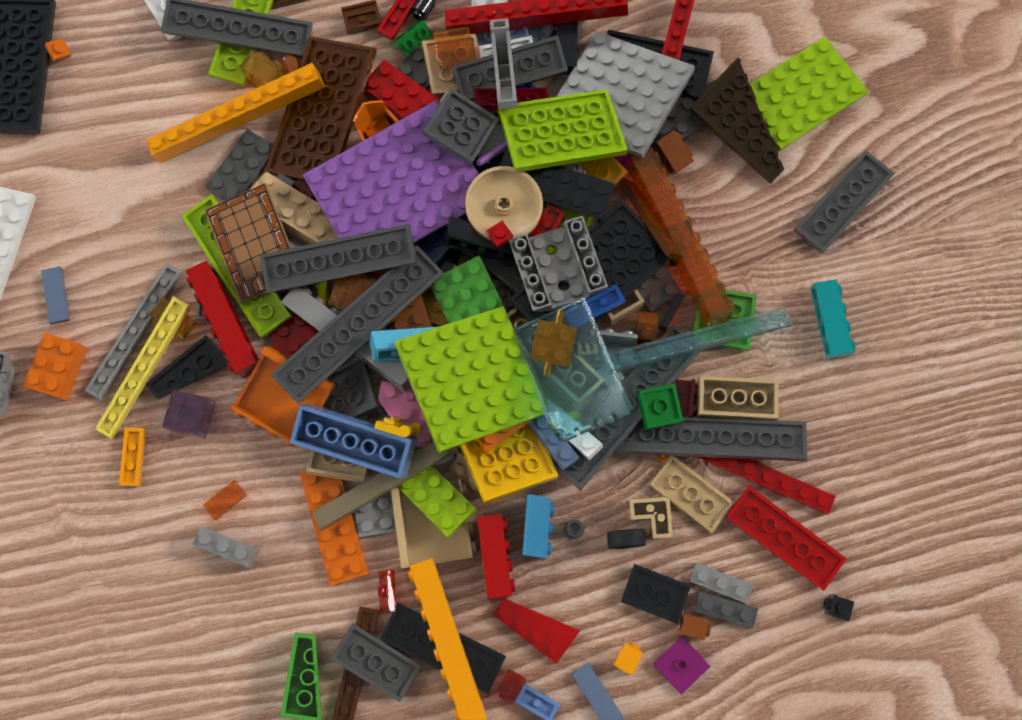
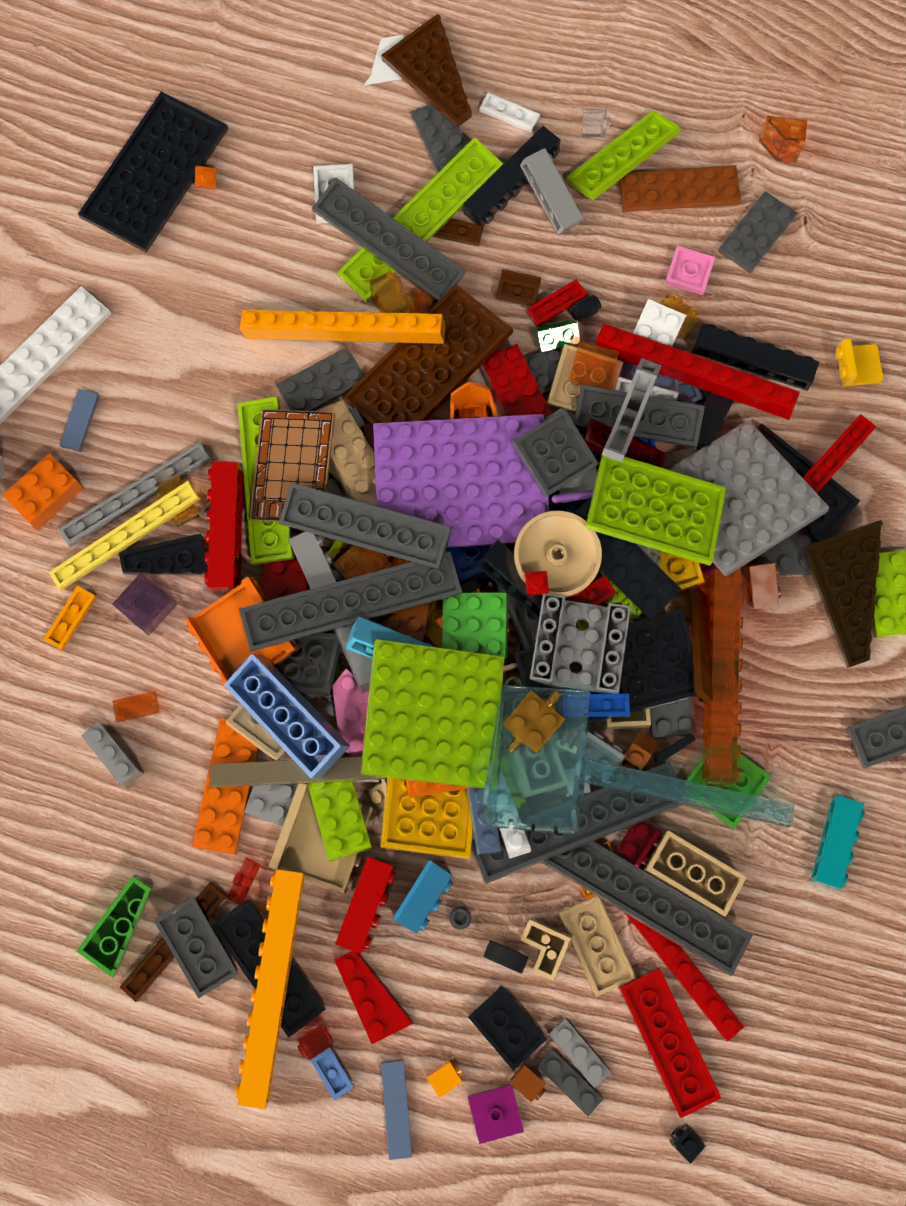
camera: 25 degrees right, 0 degrees up
(394, 426) = (335, 726): yellow plate -> none
(659, 406) = (610, 840): green tile -> none

